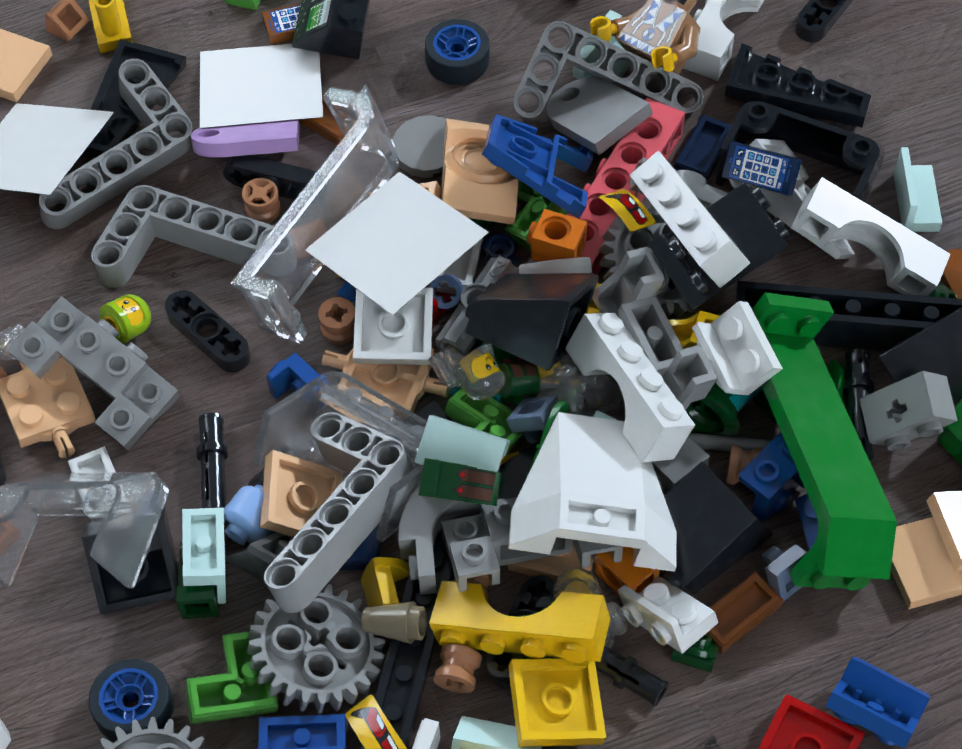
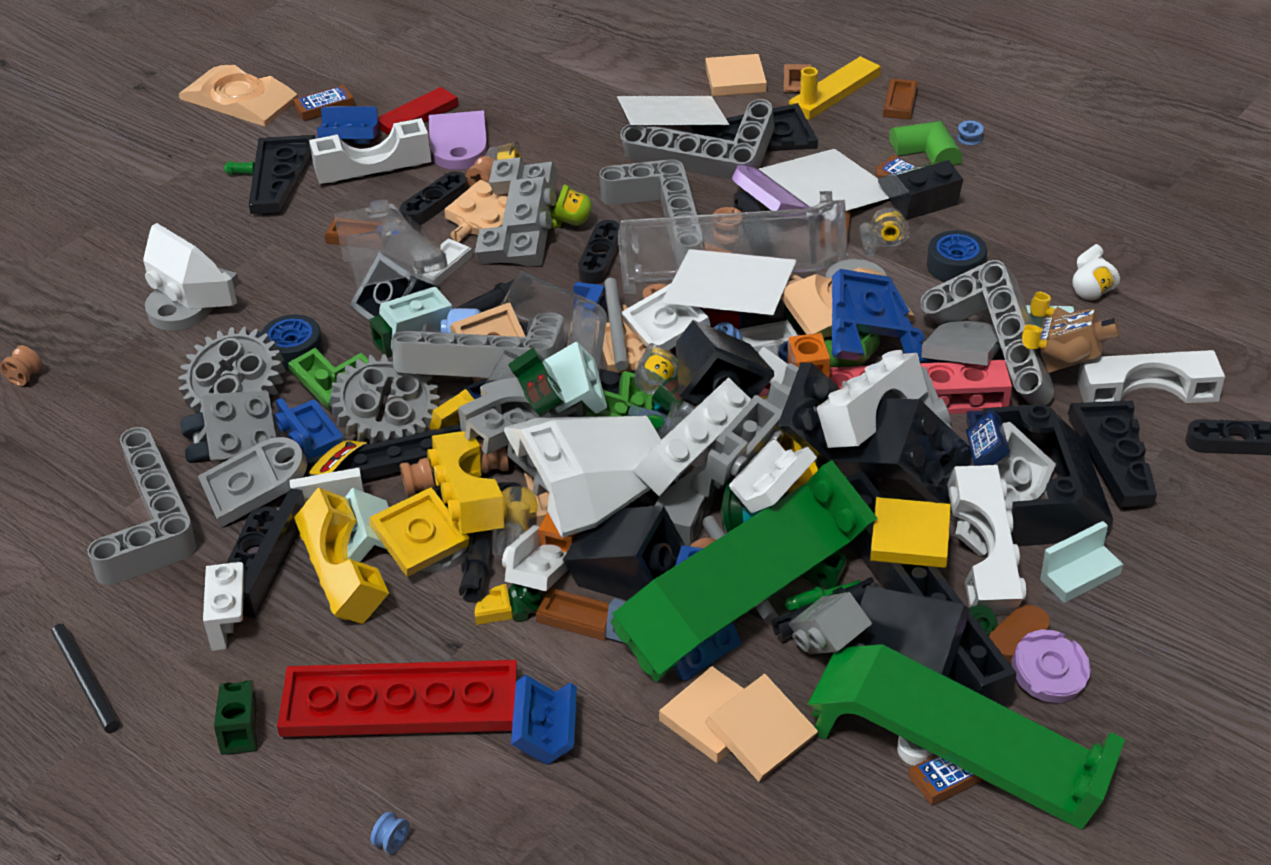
camera: 60 degrees right, 15 degrees down
(359, 372) = (616, 324): none -> light grey bar
(380, 77) = (886, 229): none -> clear piece
(396, 621) = (424, 423): dark tan cone -> none
(683, 681) = (494, 606): none -> yellow tile
(850, 284) = (911, 532): none -> yellow tile

